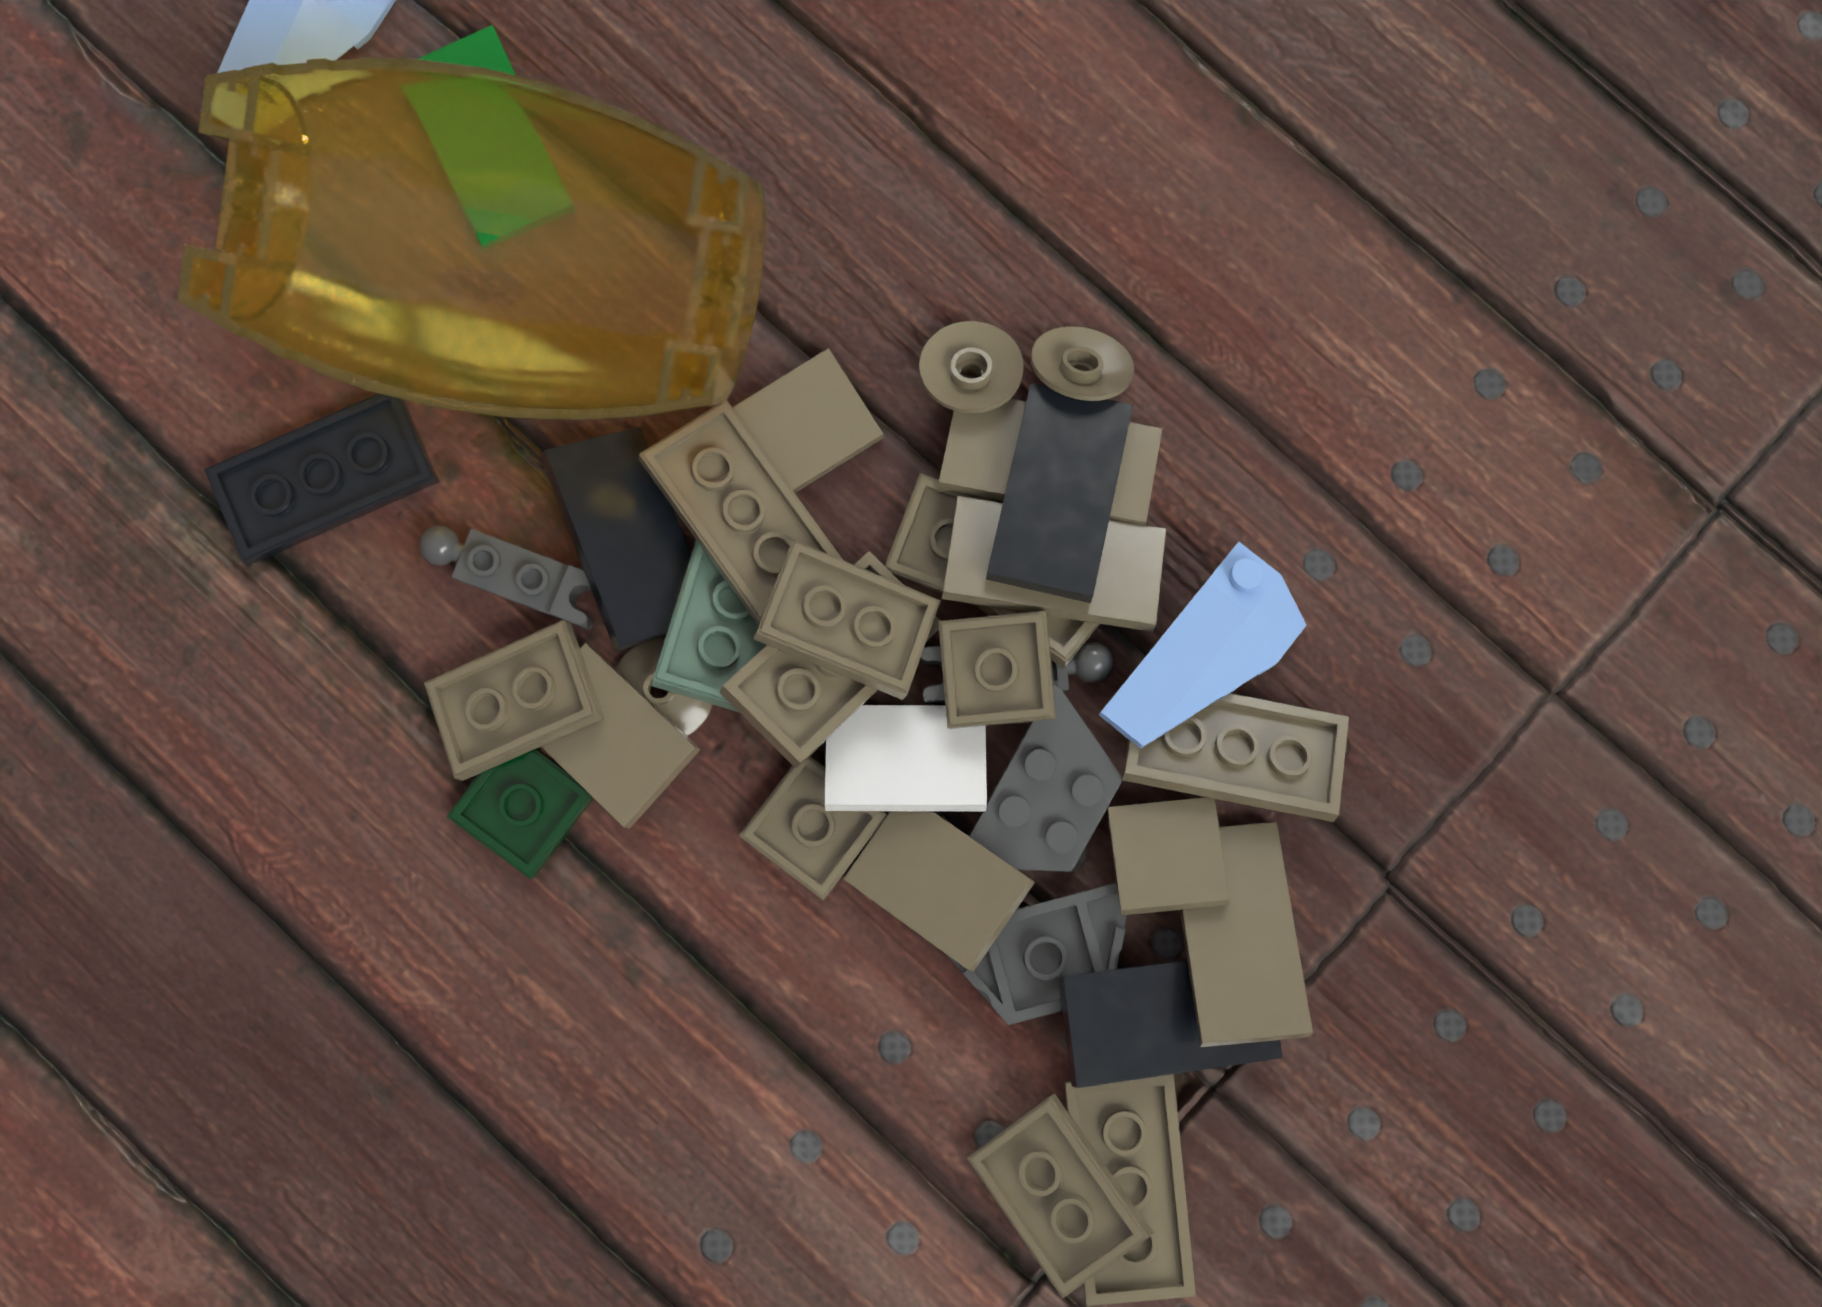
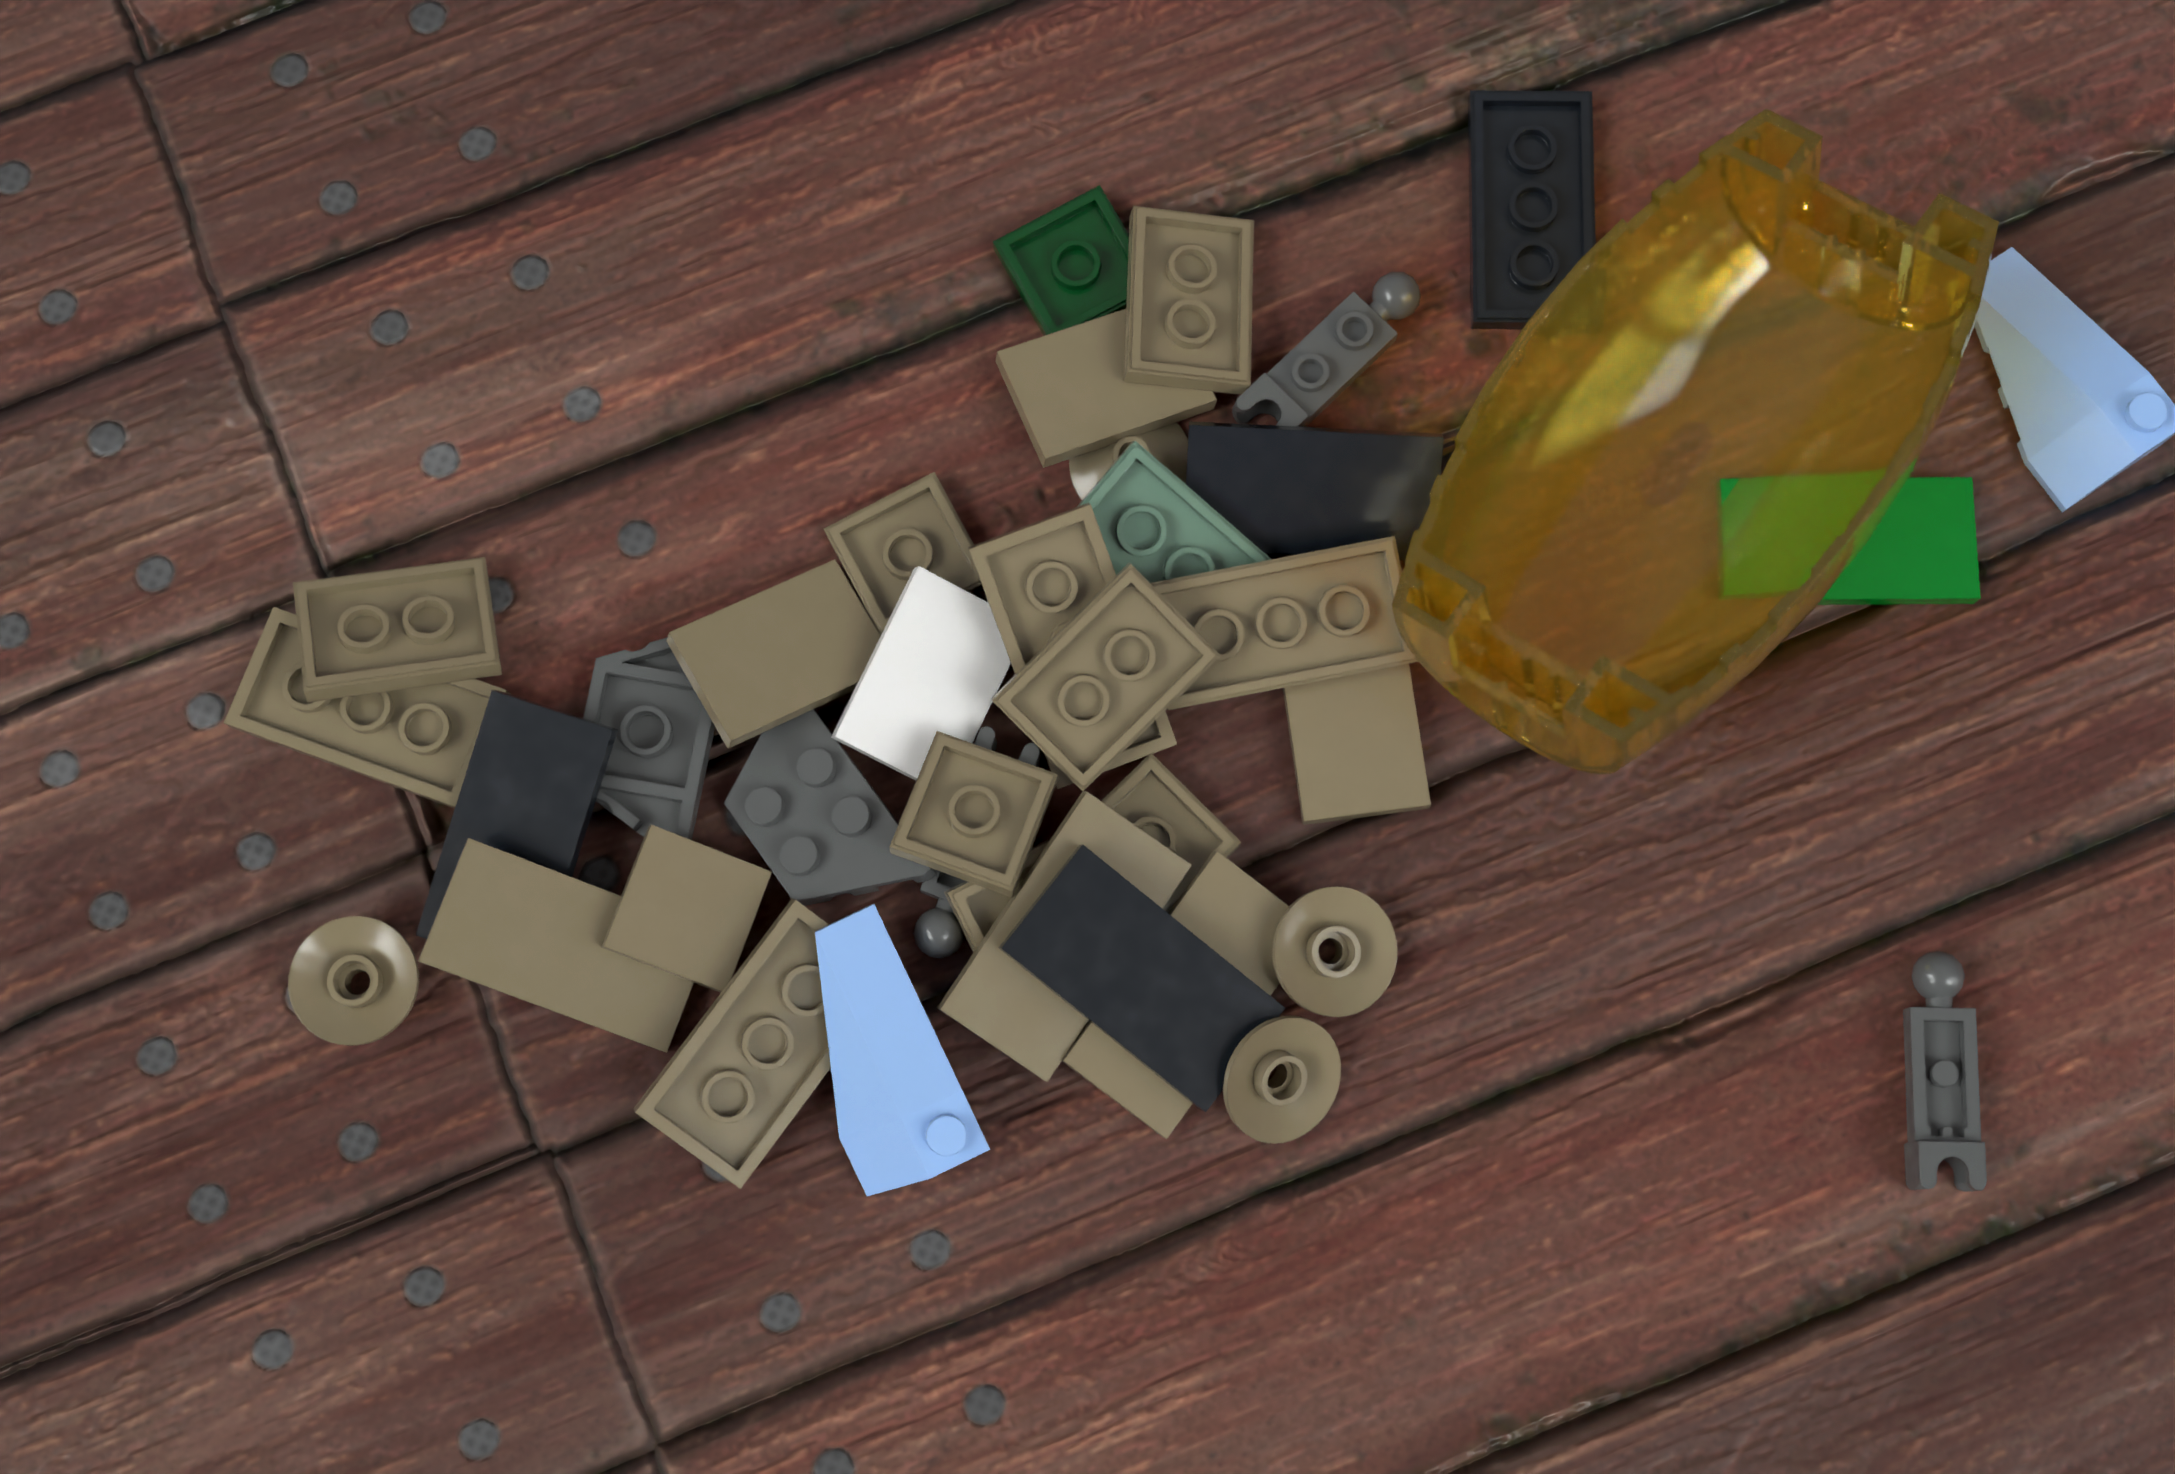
camera: 115 degrees right, 5 degrees down
(1362, 1102) = (323, 975): none -> dark tan dish

